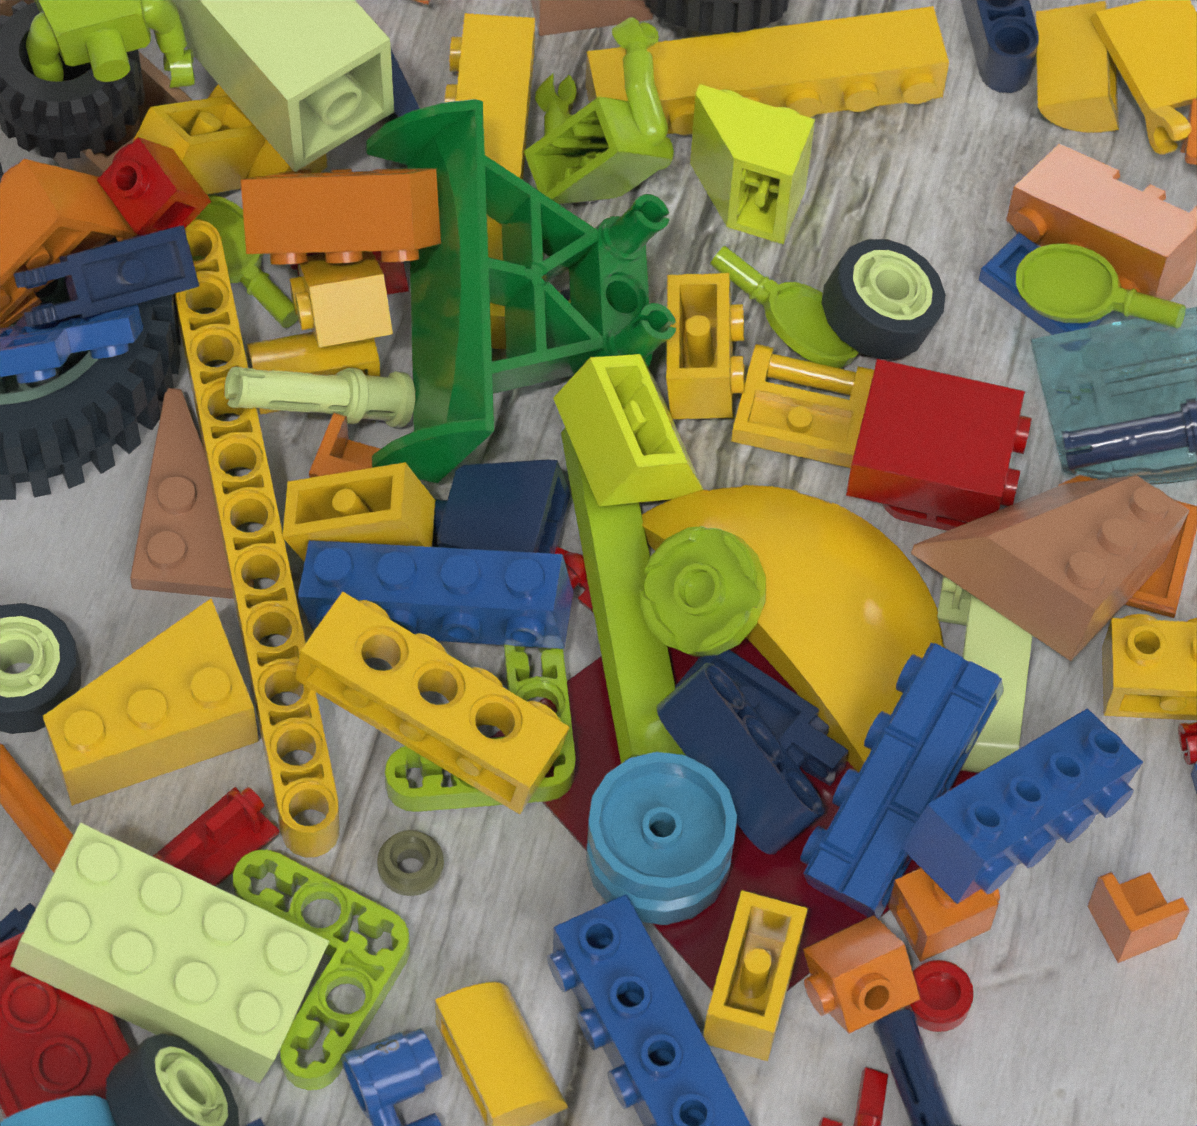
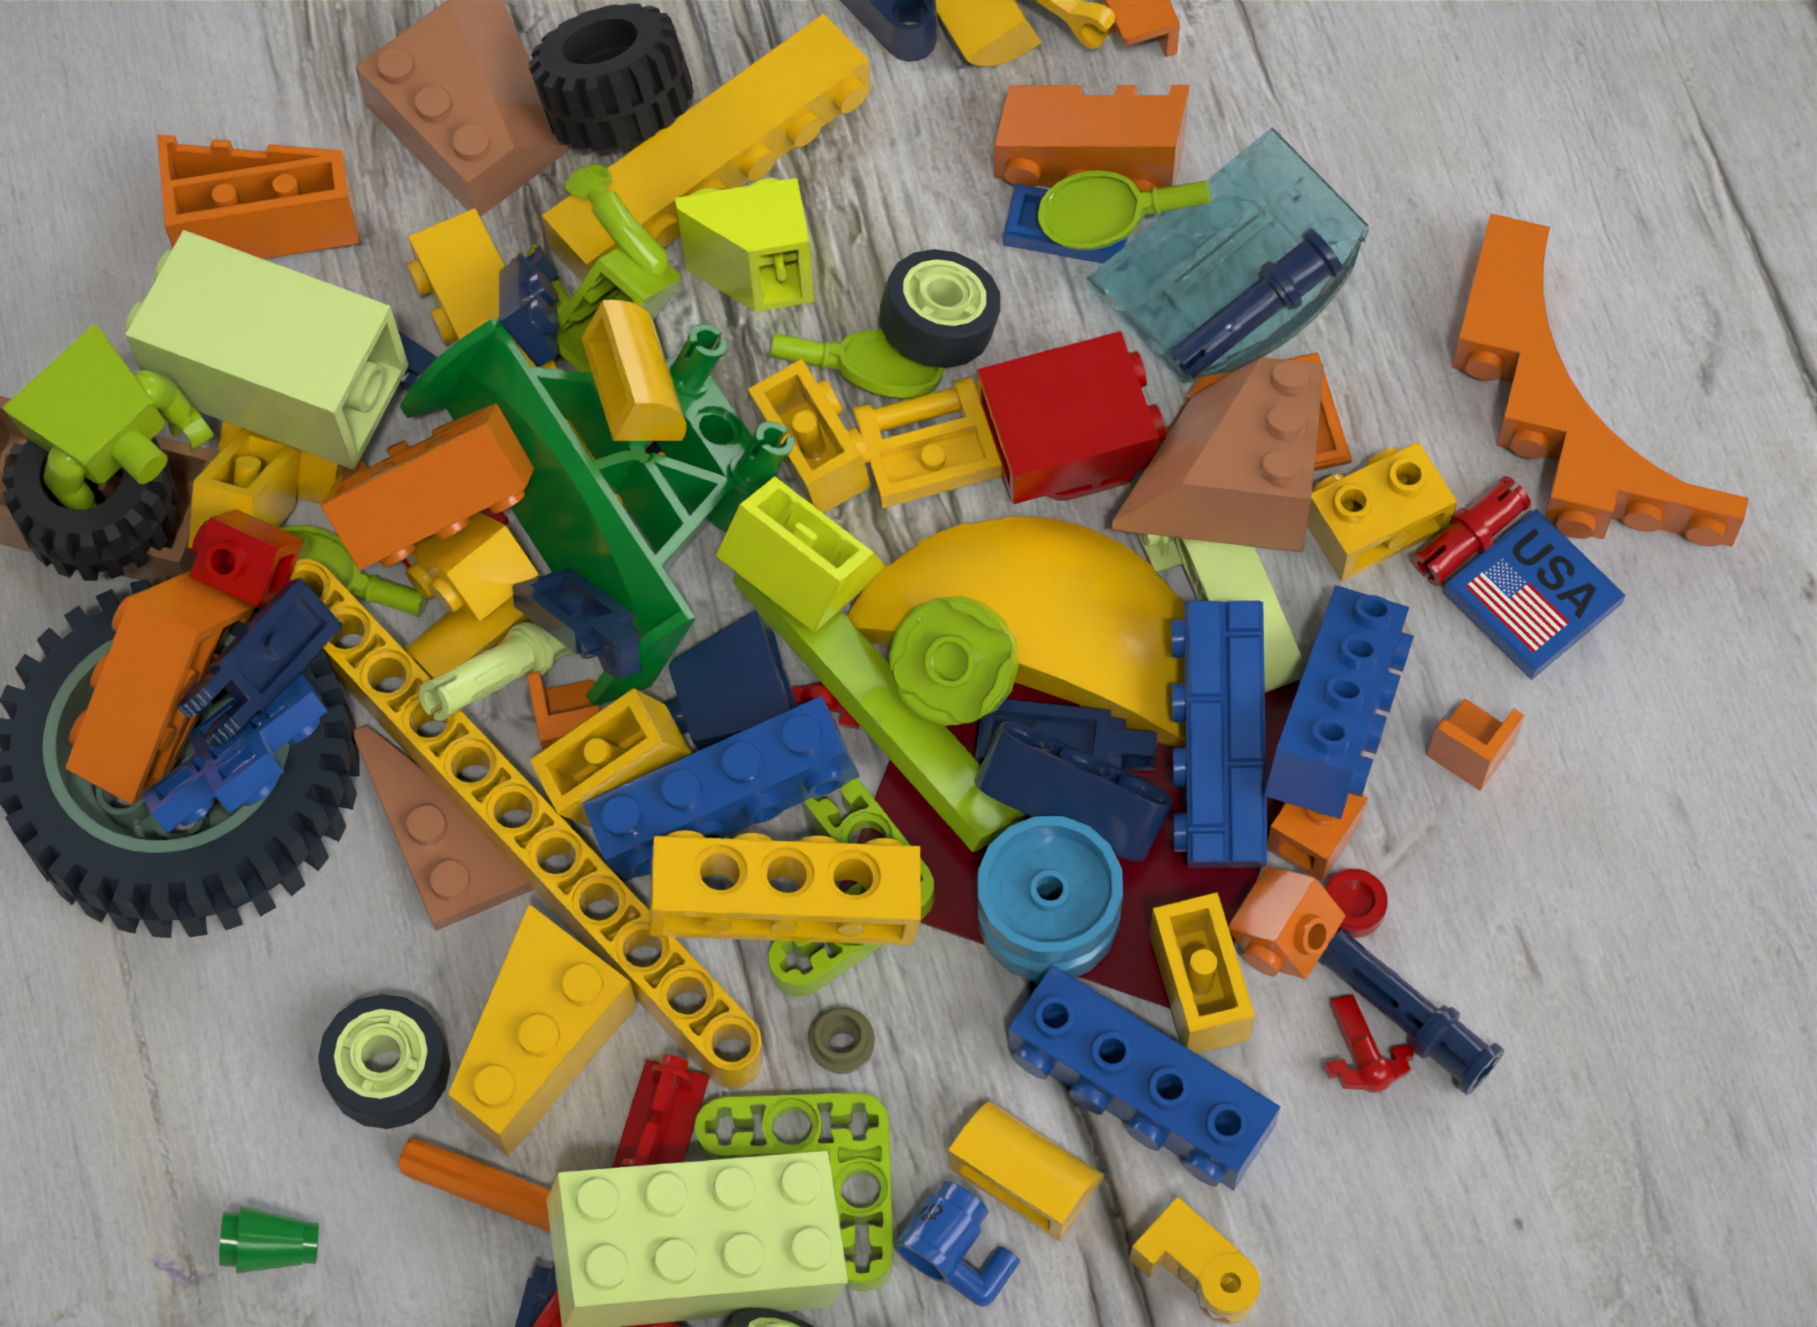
camera: 25 degrees left, 5 degrees up
(400, 385) = (582, 619): none -> dark blue hinge
(524, 112) = (529, 305): none -> dark blue hinge
(571, 207) = (632, 374): none -> yellow brick

